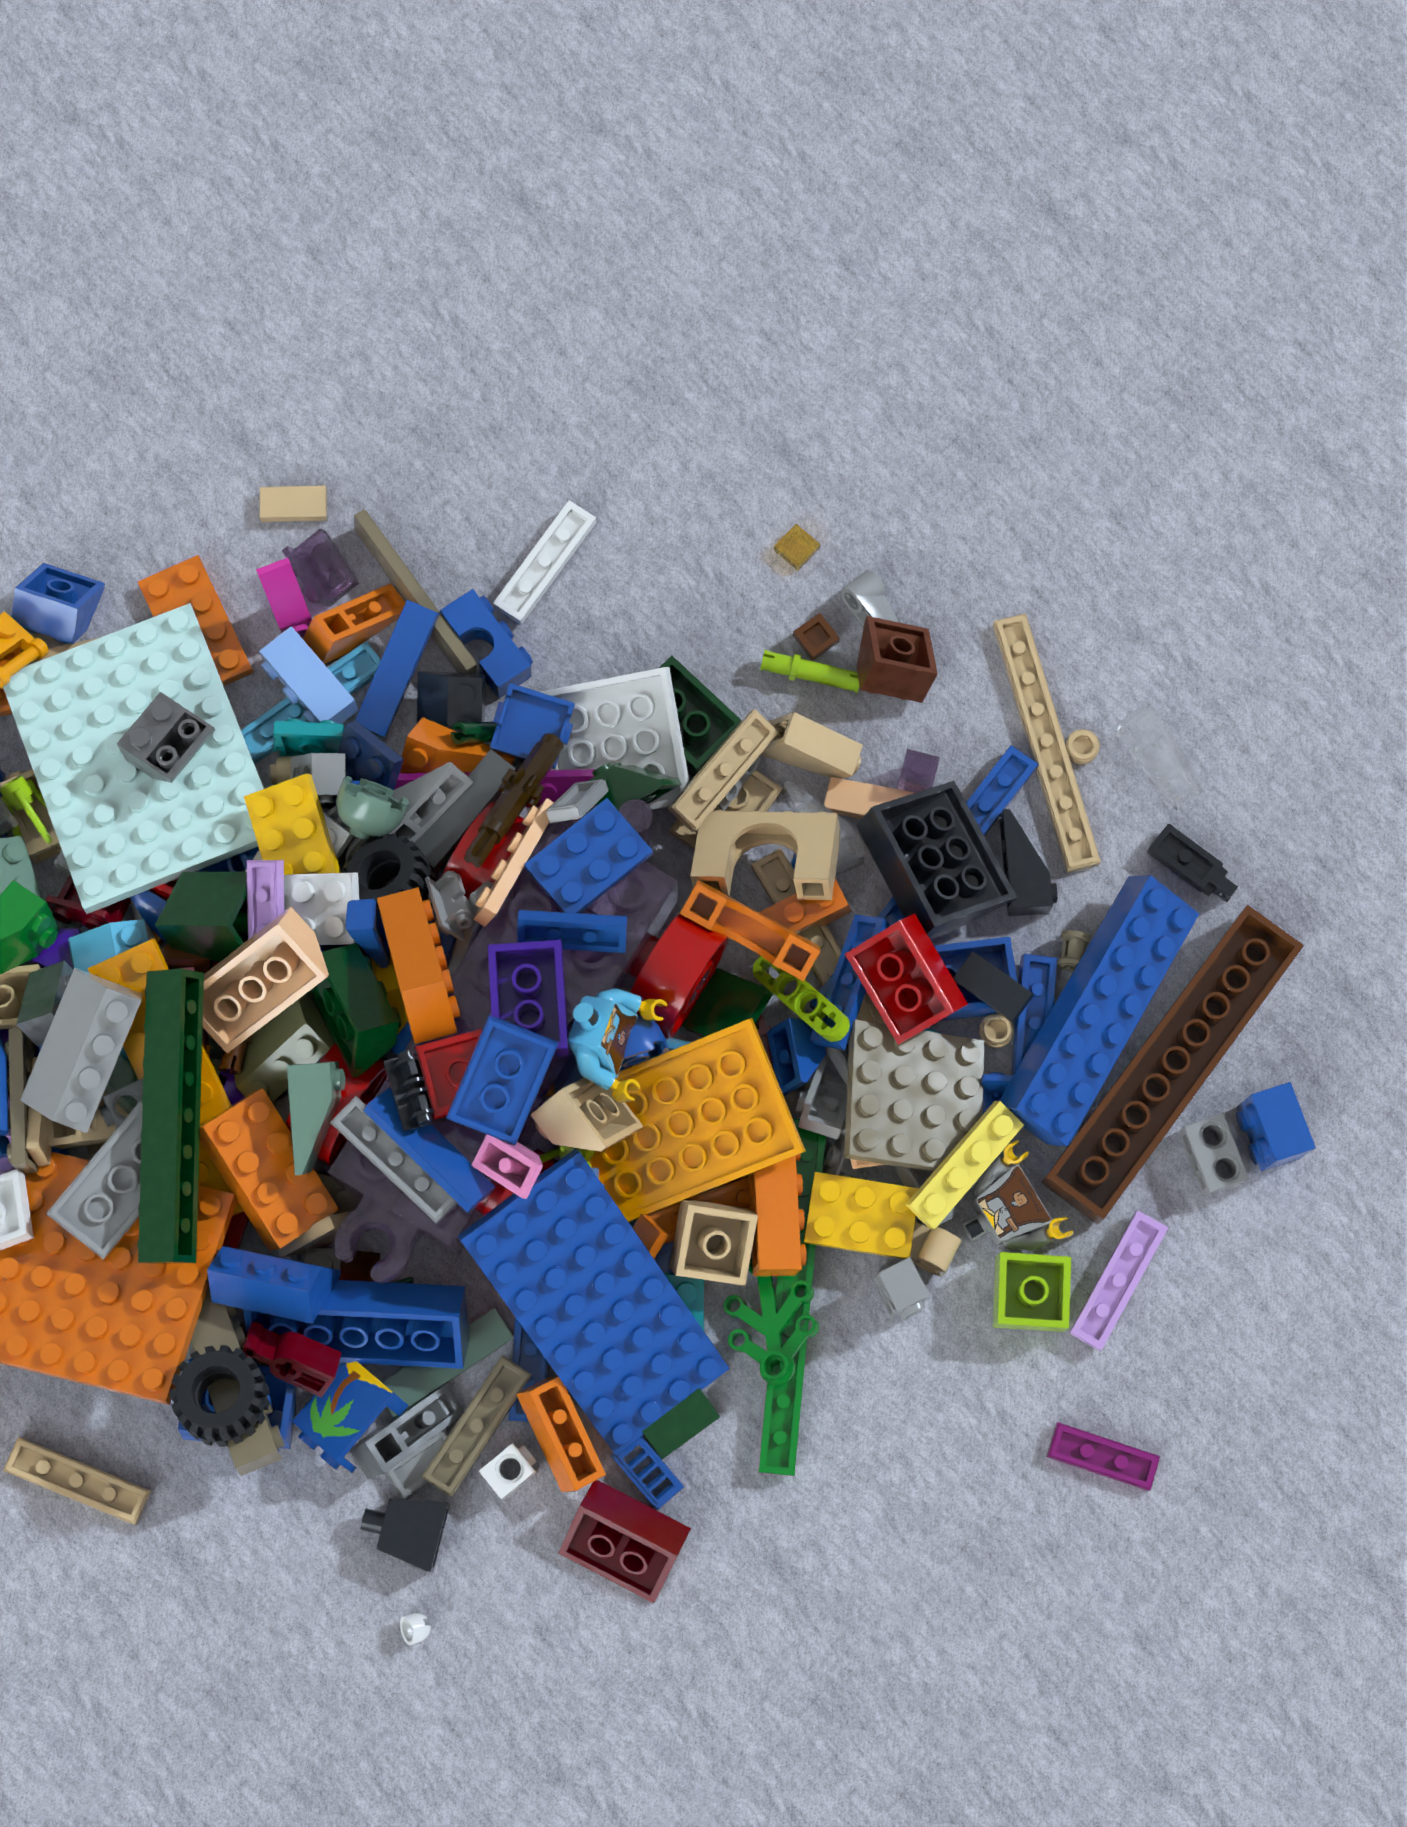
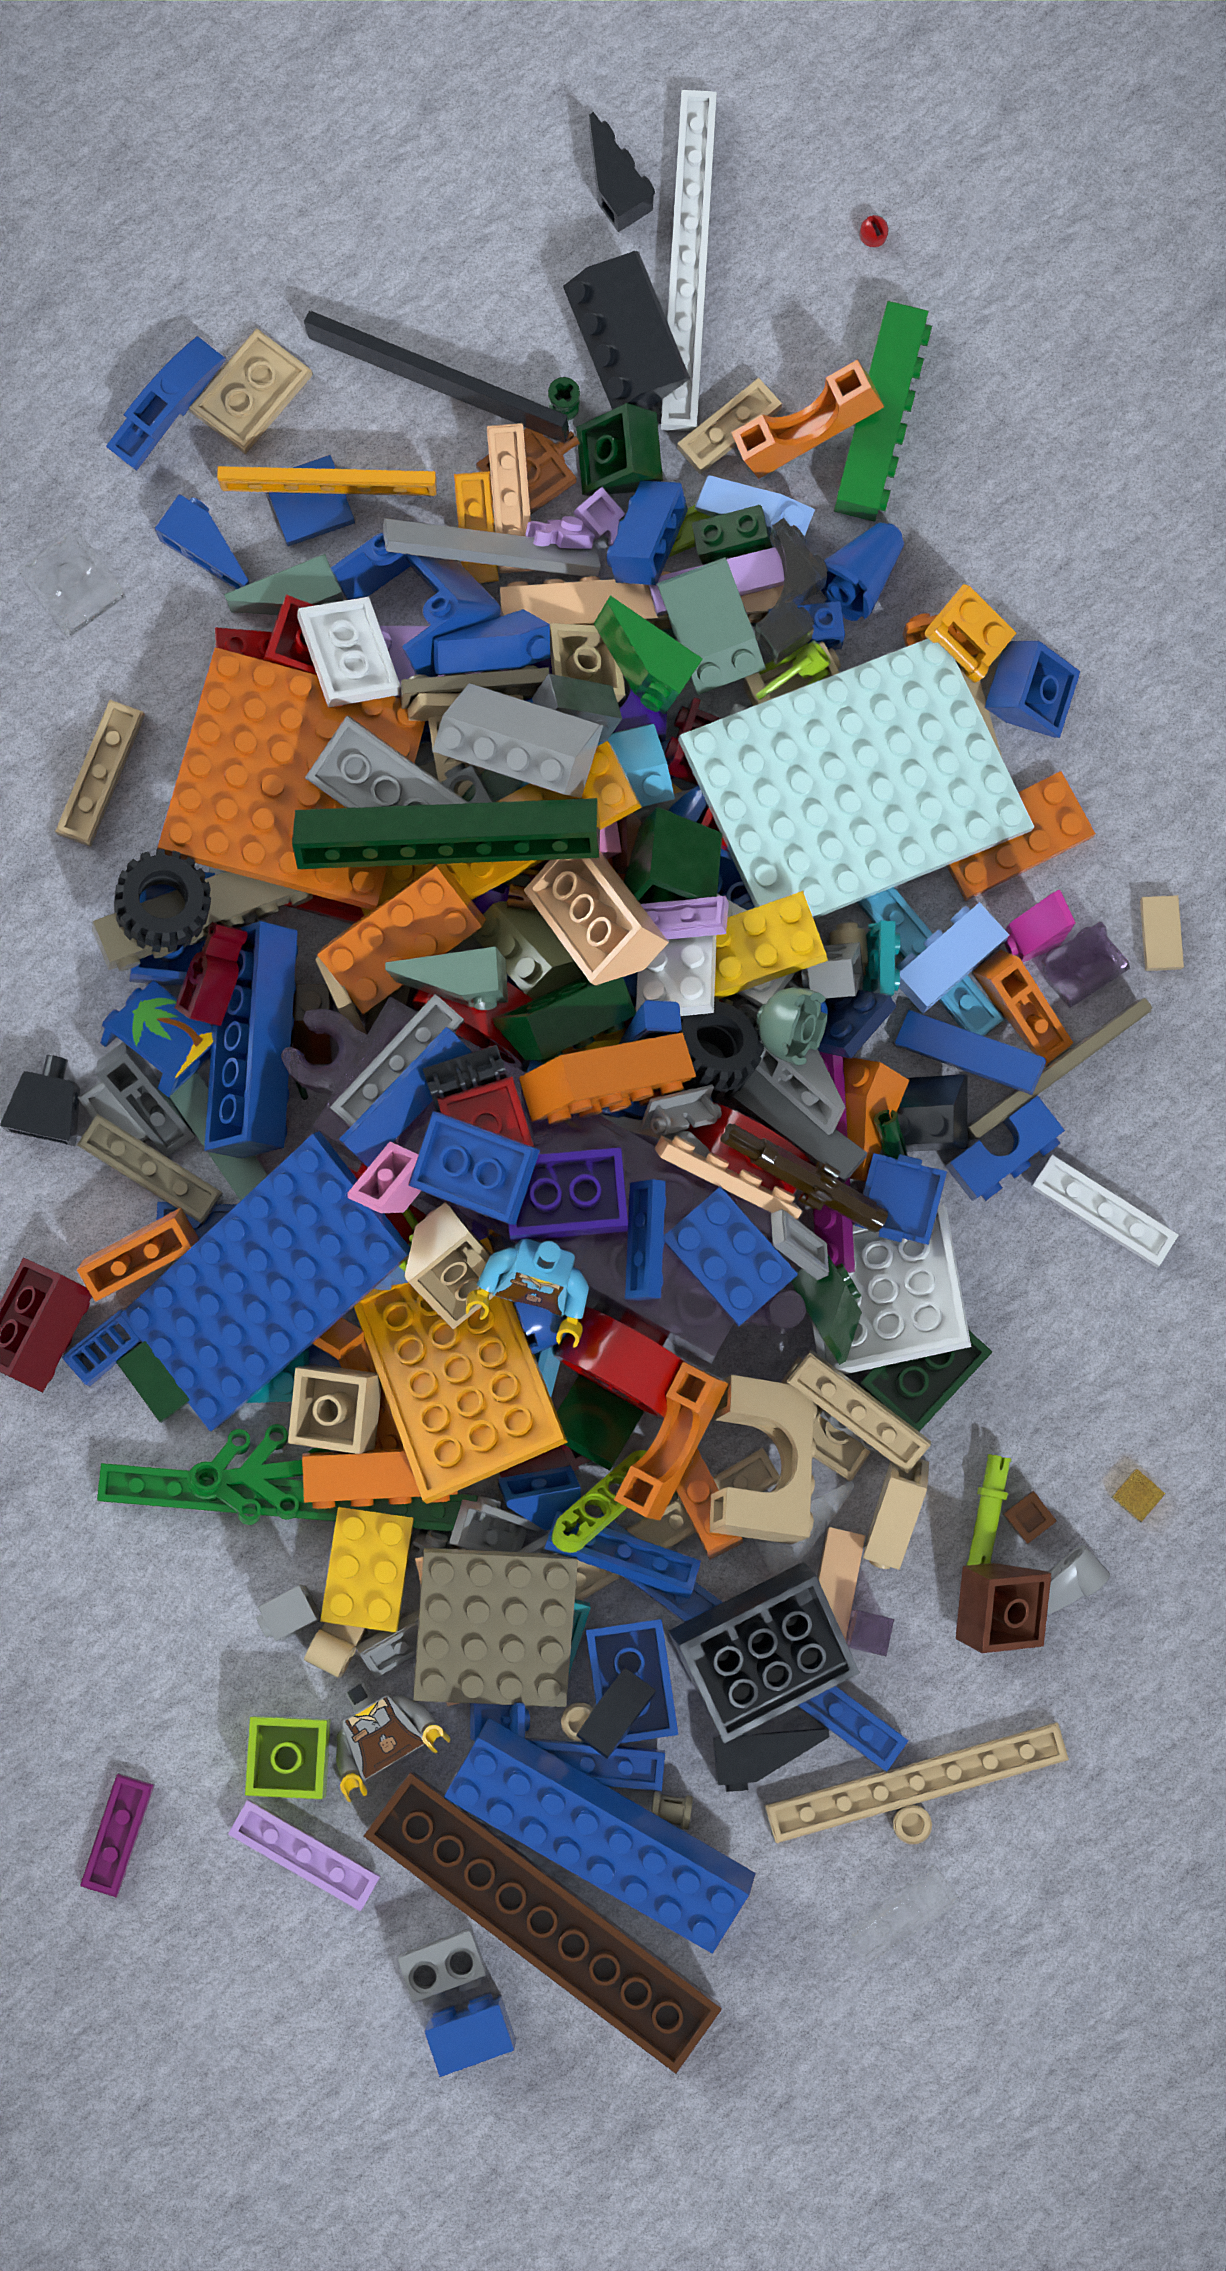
camera: 90 degrees right, 5 degrees up
(164, 739) = (865, 805): flat silver slope -> none
(270, 1284) = (285, 948): blue slope -> none
(493, 1475) = (93, 1192): white brick -> none
(906, 978) = (621, 1616): red slope -> none
(964, 1164) = (419, 1681): light yellow plate -> none
(1192, 863) = (777, 1948): black hinge -> none

